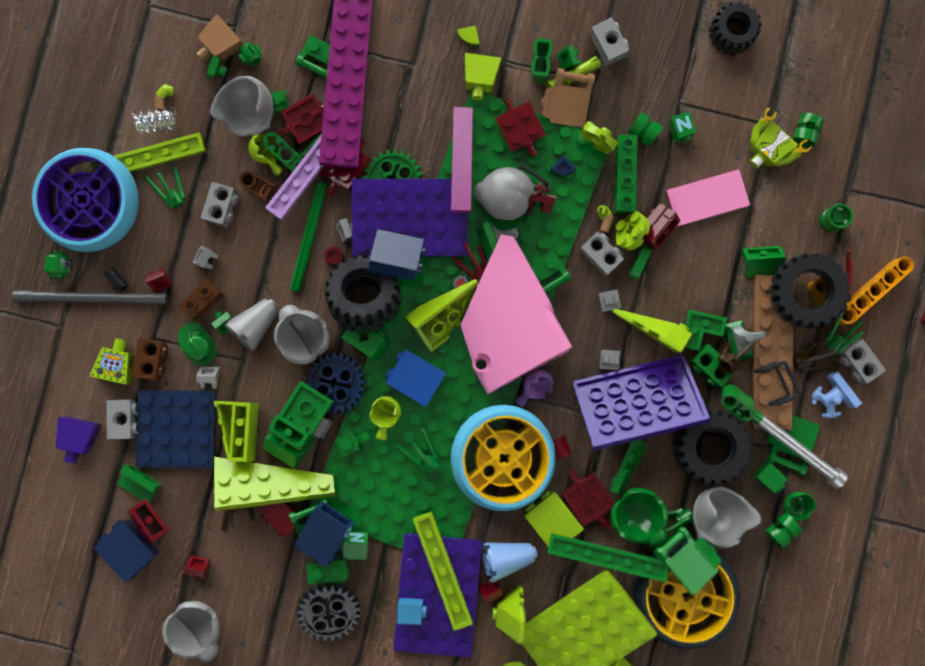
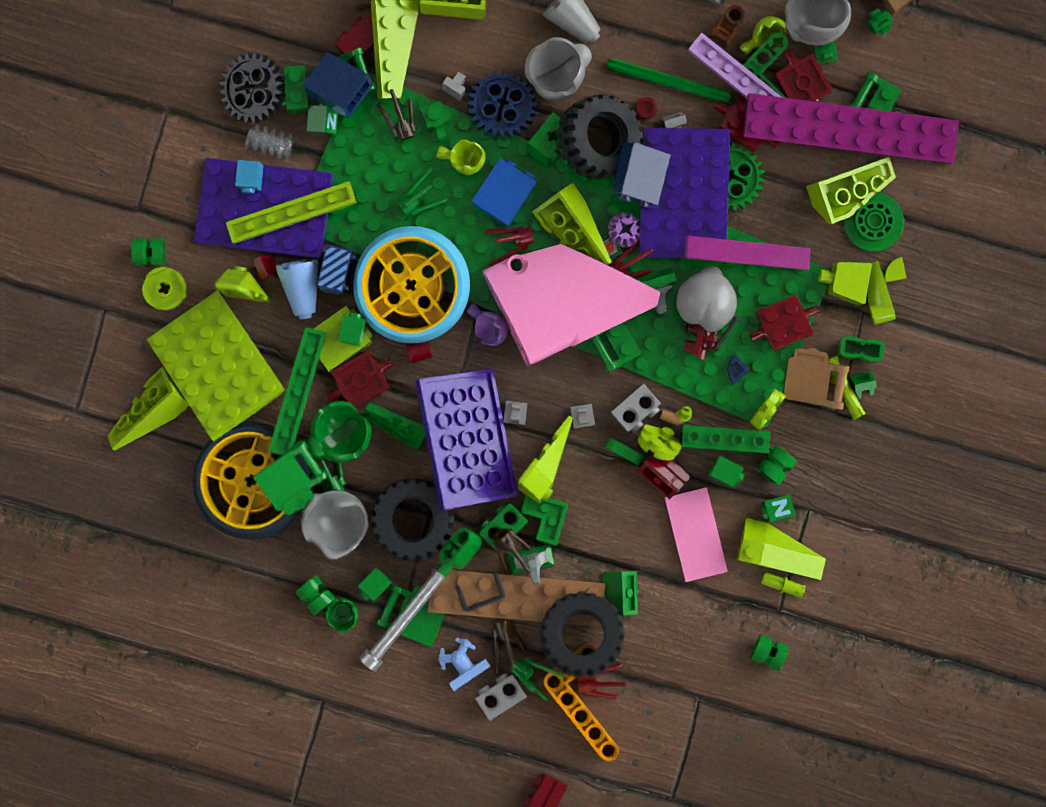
camera: 90 degrees right, 0 degrees up
(295, 426) = (456, 57): green piece -> none
(361, 471) = (403, 129): none -> dark brown plant
(377, 593) = (269, 141): none -> clear piece
(403, 80) = (845, 193): none -> lime wedge
(426, 55) = (875, 222): none -> green wheel
(444, 278) = (615, 228): none -> medium lavender gear
(455, 360) = (521, 237): none -> dark red plant
(493, 526) = (336, 270): none -> dark blue container
(498, 46) = (878, 297): none -> lime piece
(547, 509) = (352, 329): none -> green brick
(609, 52) = (868, 431): light grey brick -> none
(655, 172) = (726, 472): none -> green brick
(717, 131) = (773, 549): none -> lime wedge
(745, 18) = (910, 575): black tyre -> none
(747, 120) = (783, 585): none -> lime axle
(772, 144) = (754, 611): lime torso -> none
(835, 218) = (666, 677): green wheel -> none

